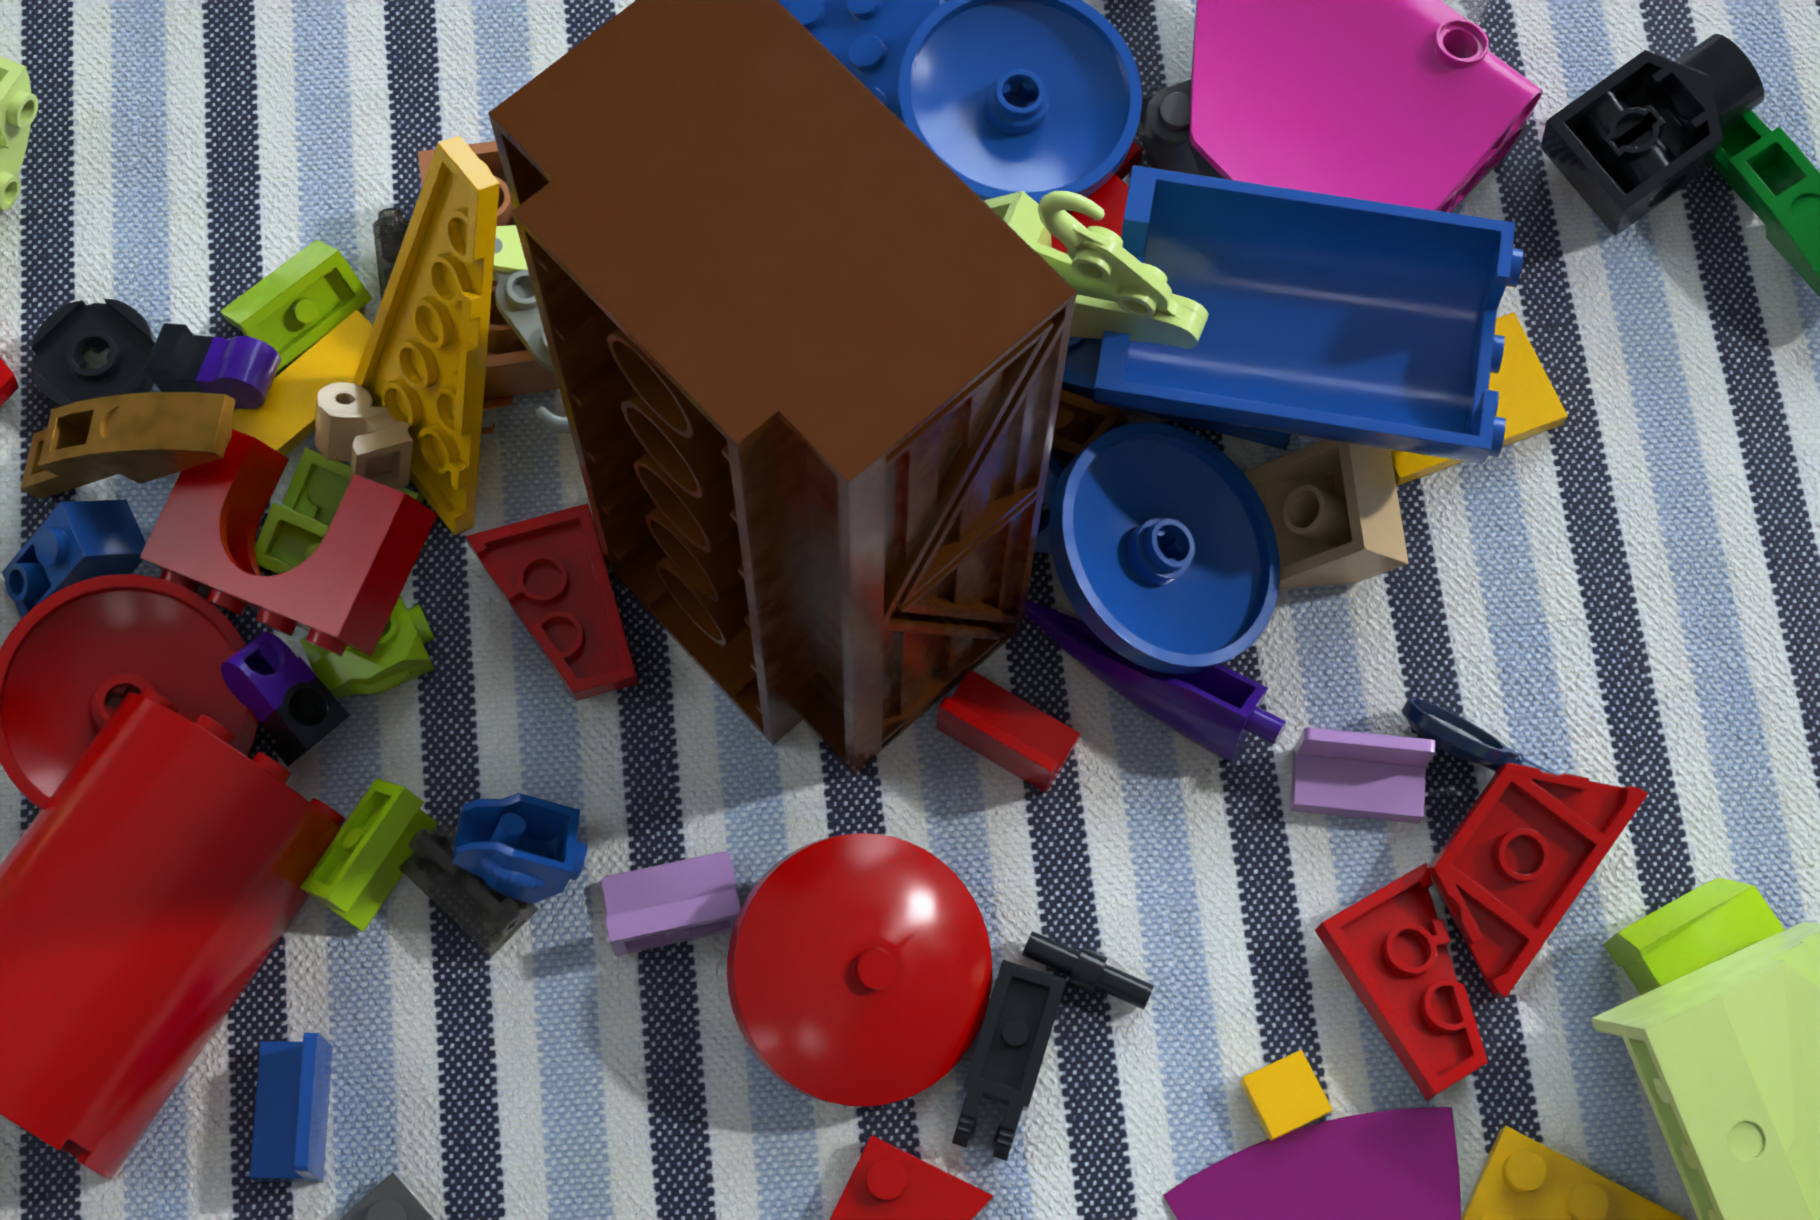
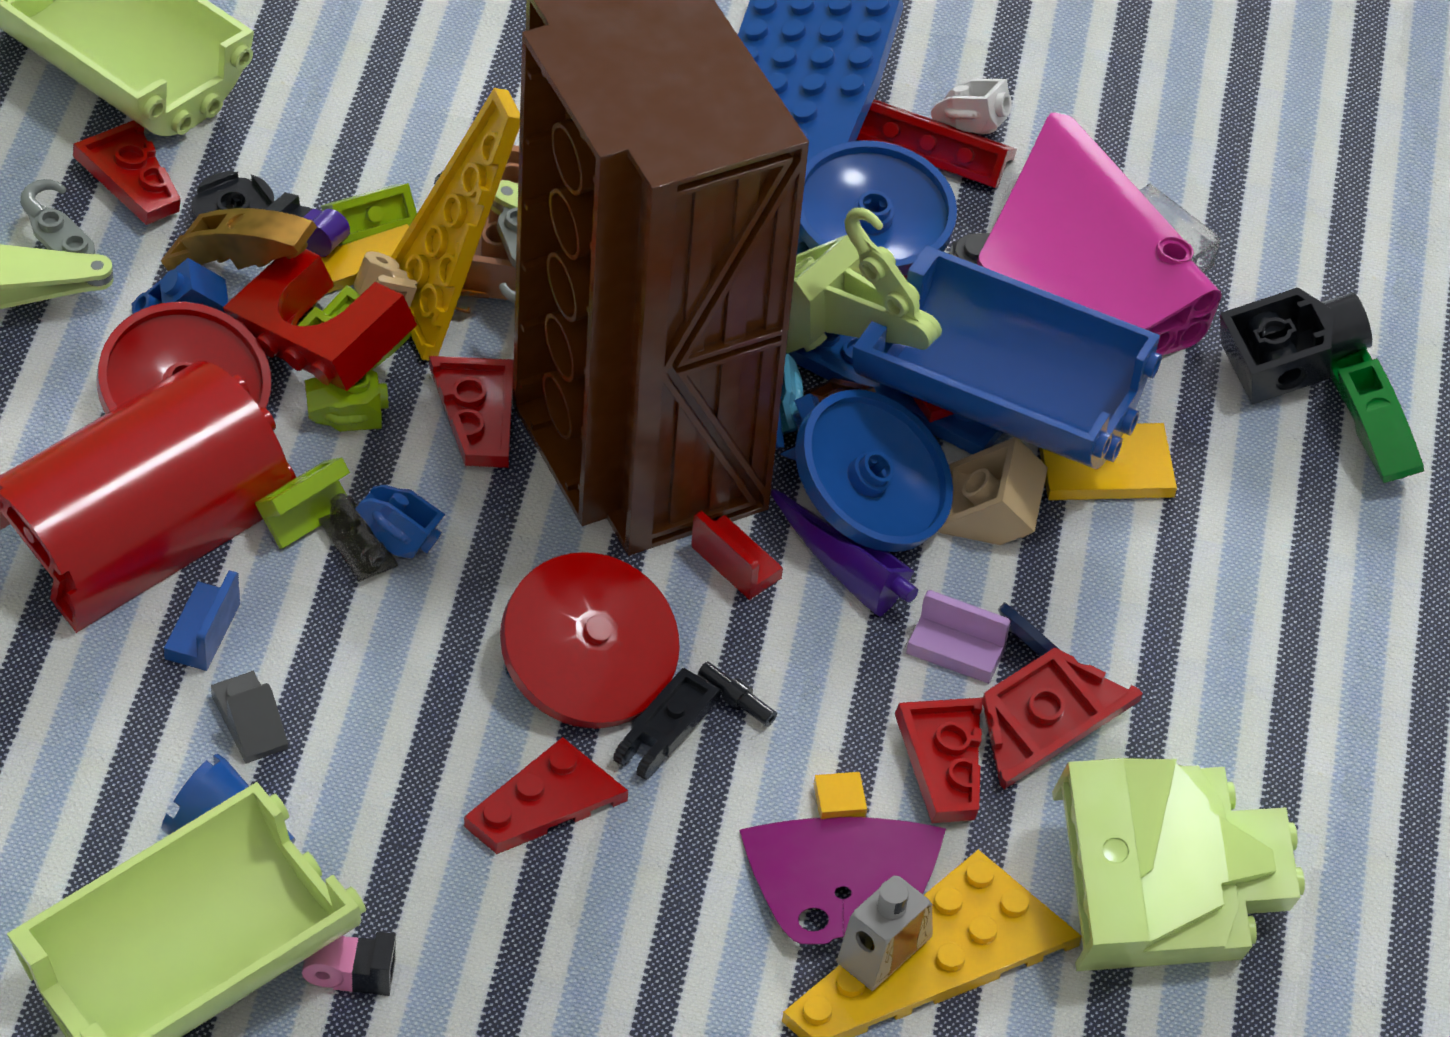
camera: 15 degrees right, 20 degrees down
(282, 695) = (287, 399): leg -> none
(670, 903) = (476, 586): lavender panel -> none

